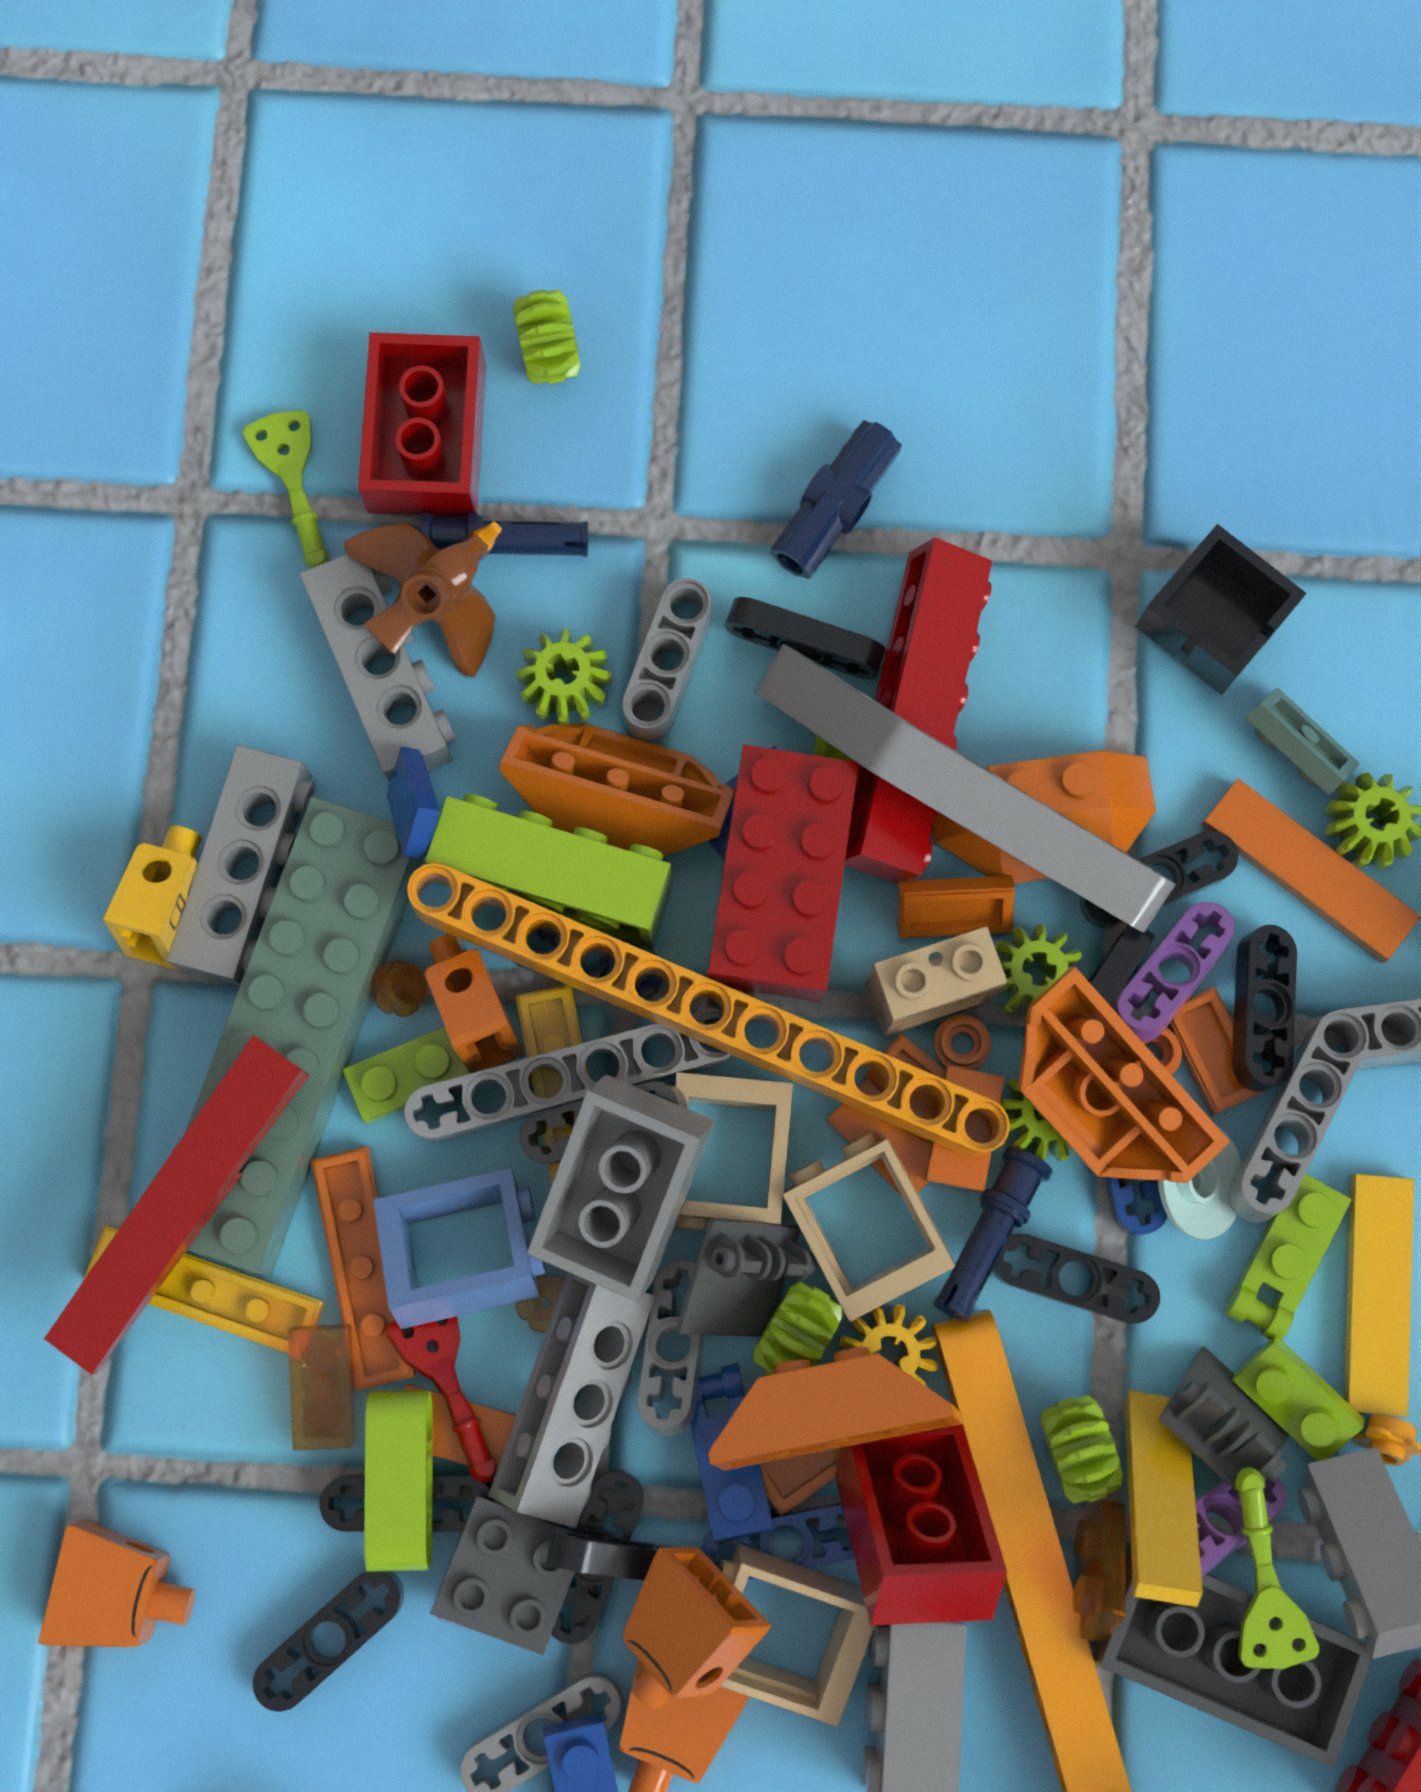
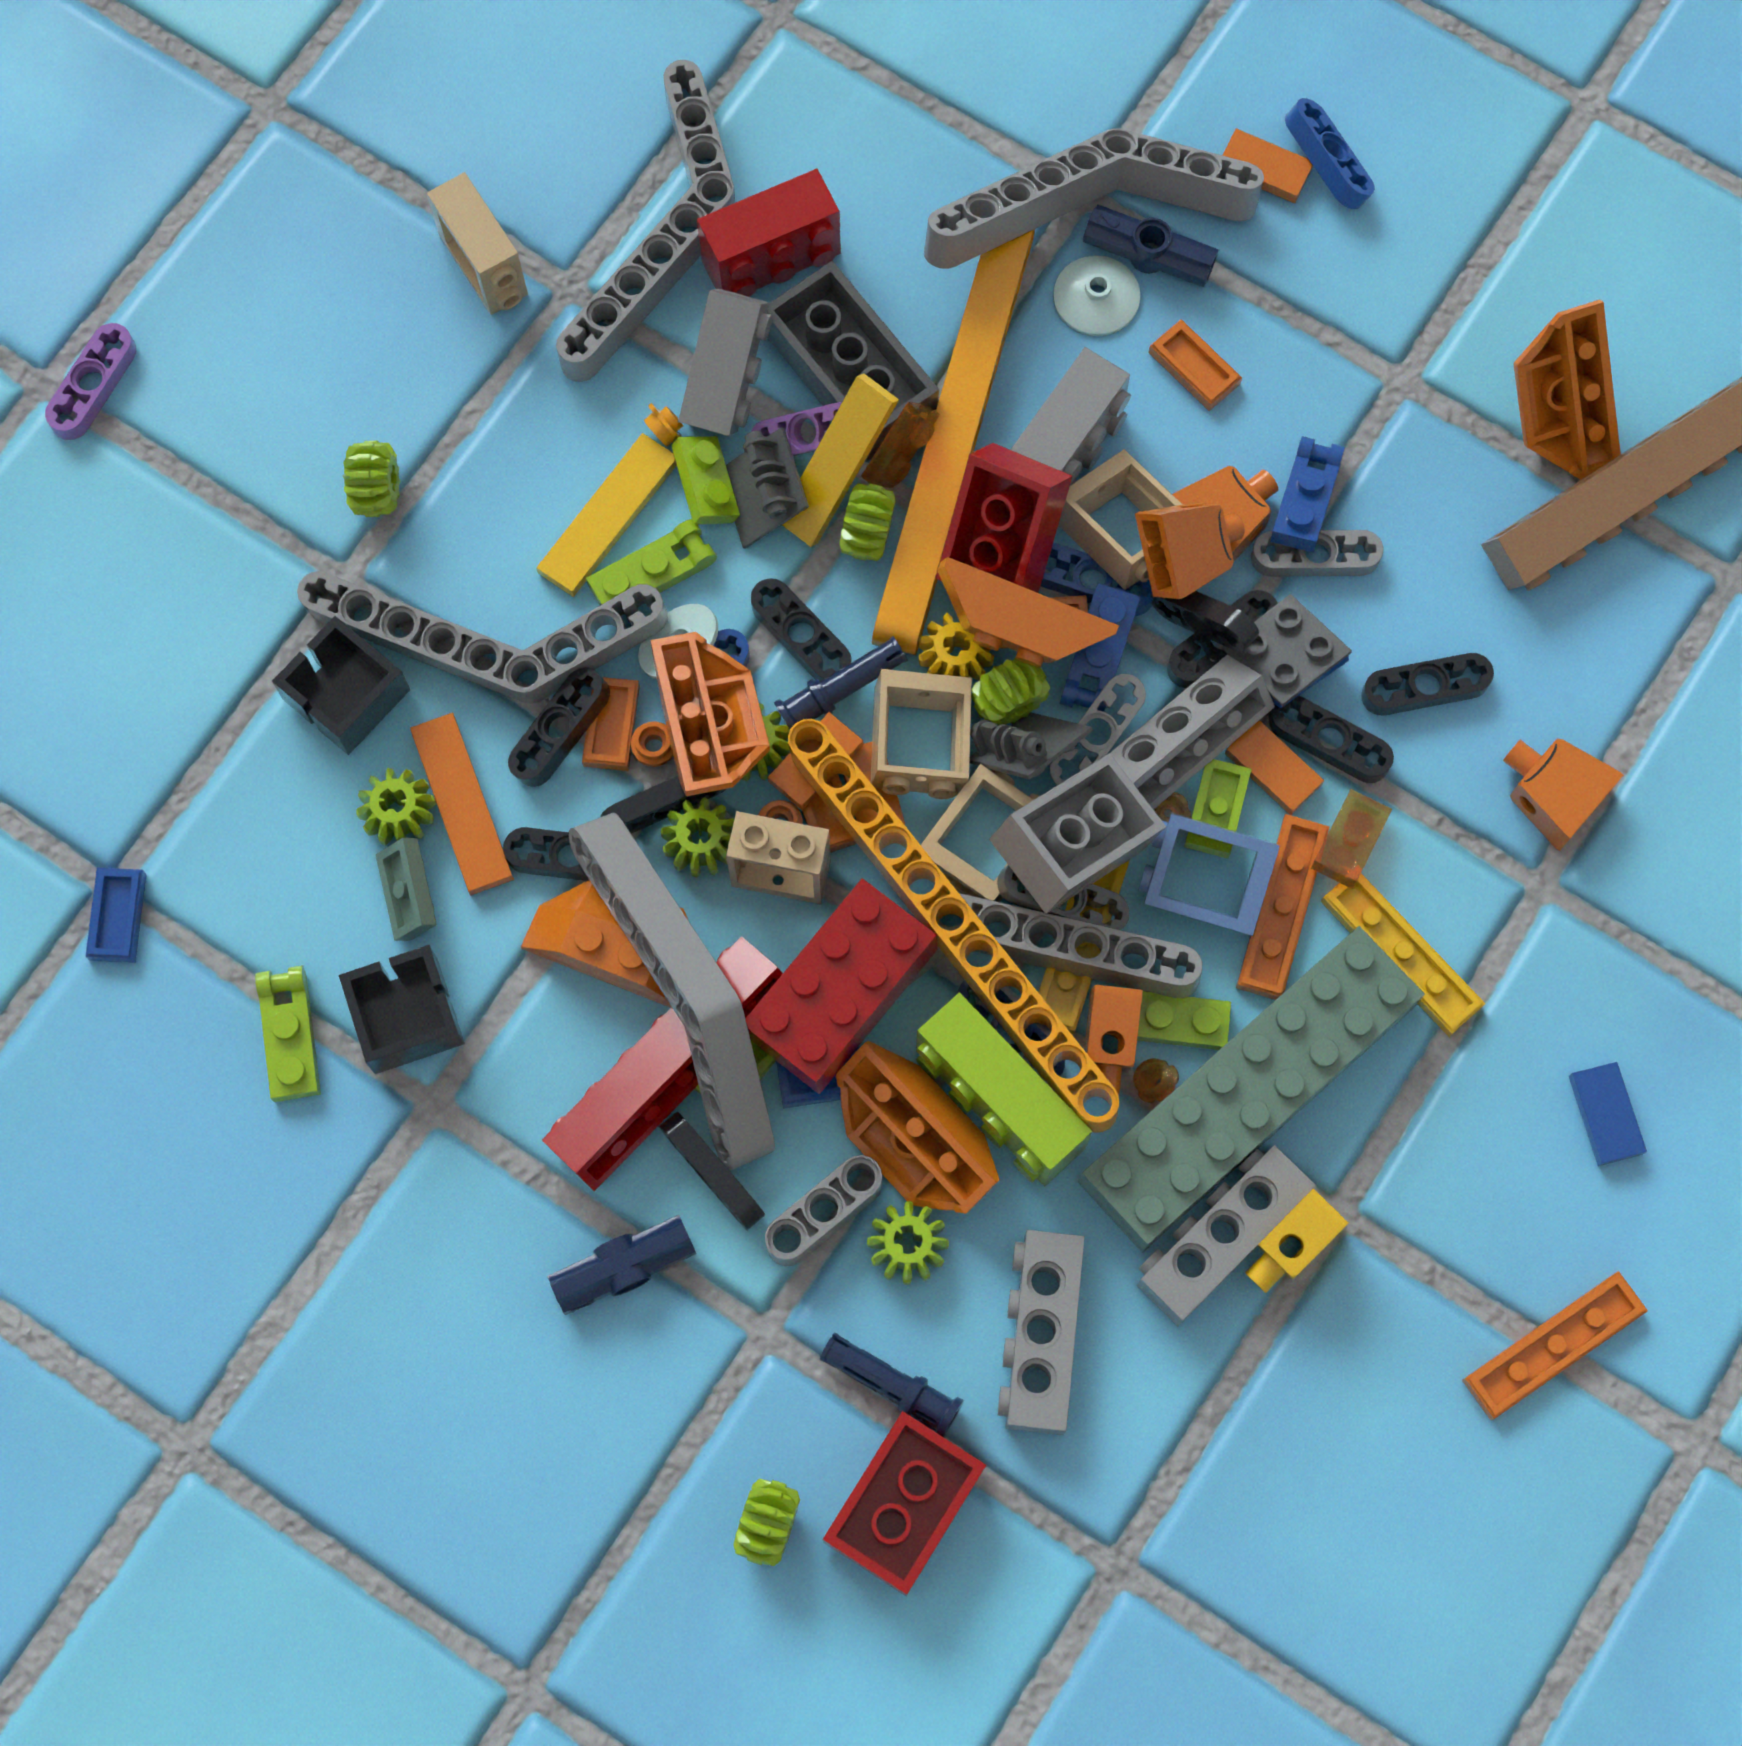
camera: 150 degrees left, 5 degrees down
(177, 1204) = (1389, 992): red slope -> none
(290, 471) = (1026, 1543): lime piece -> none
(398, 1481) = (1329, 745): lime beam -> none
(412, 803) = (1076, 1189): blue tile -> none
(432, 586) = (966, 1352): dark orange animal -> none
(440, 1369) = (1264, 807): red piece -> none
(495, 1352) = (1218, 804): none -> lime plate
(955, 906) = (726, 912): orange tile -> none
(1176, 947) = (569, 786): medium lavender beam -> none
(1269, 1598) = (808, 367): lime piece -> none
(1316, 537) = (288, 1035): none -> lime plate

